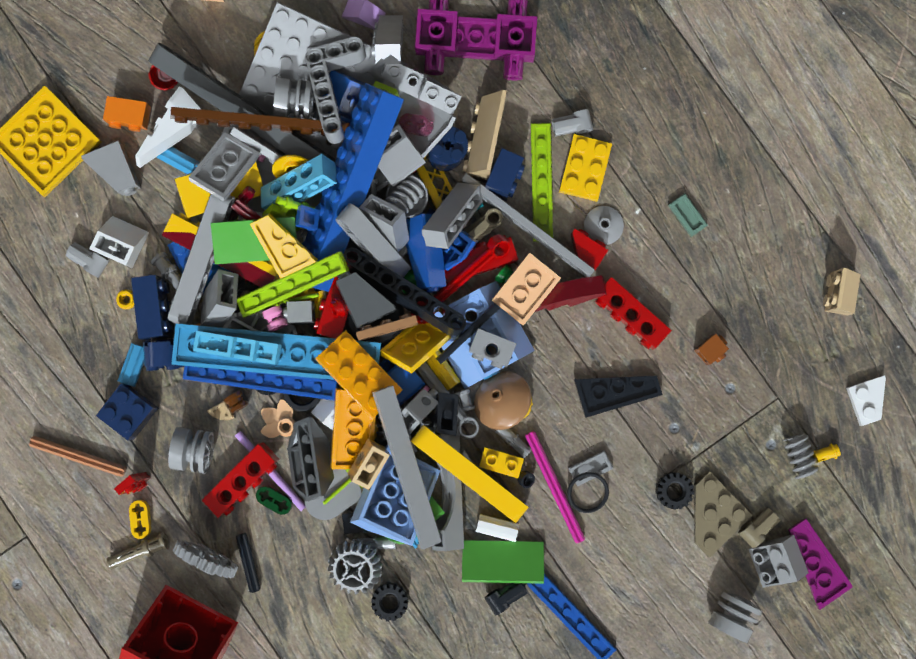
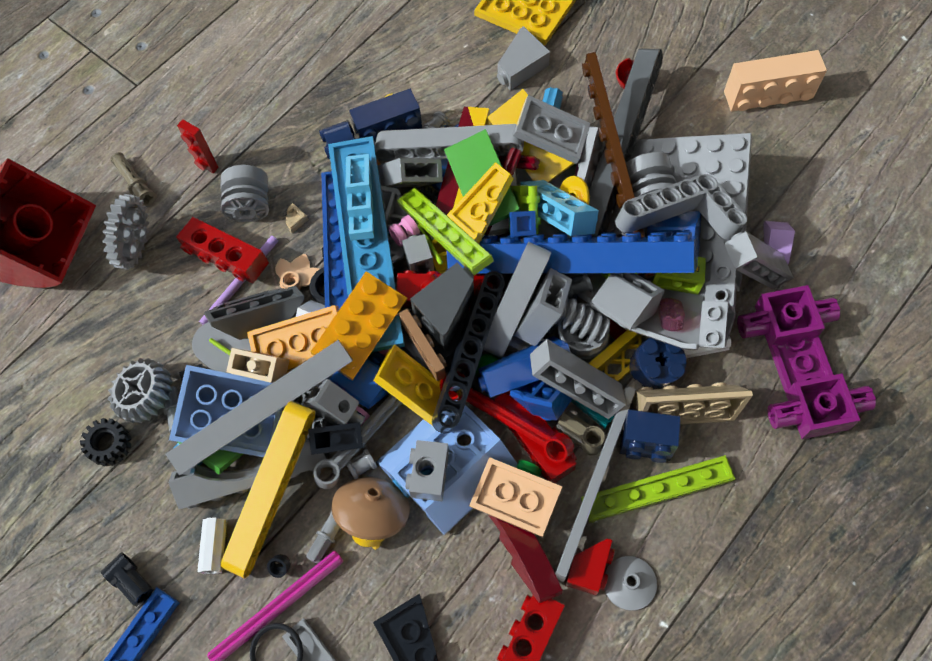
camera: 80 degrees right, 20 degrees down
(77, 456) = (222, 105): nougat axle -> none
(90, 261) = (421, 65): light grey piece -> none
(119, 241) = (447, 80): white slope -> none
(127, 113) = (576, 47): orange brick -> none
(127, 411) = (275, 131): dark blue brick -> none
(132, 365) = (313, 124): dark azure axle -> none
(135, 520) = (167, 173): yellow beam -> none
(166, 130) = (572, 85): white wedge -> none
(236, 402) = (307, 226): reddish brown wheel -> none
(248, 562) = (133, 284): black axle -> none
(271, 503) = (206, 291): dark green beam -> none
(443, 371) = (393, 429): yellow axle -> none
(467, 333) = (439, 437): black bar -> none
(501, 462) = (293, 527): yellow brick -> none
(503, 562) = (169, 564): bright green tile -> none
(577, 122) = (748, 512): light grey piece -> none
(585, 167) = (695, 539): yellow plate -> none

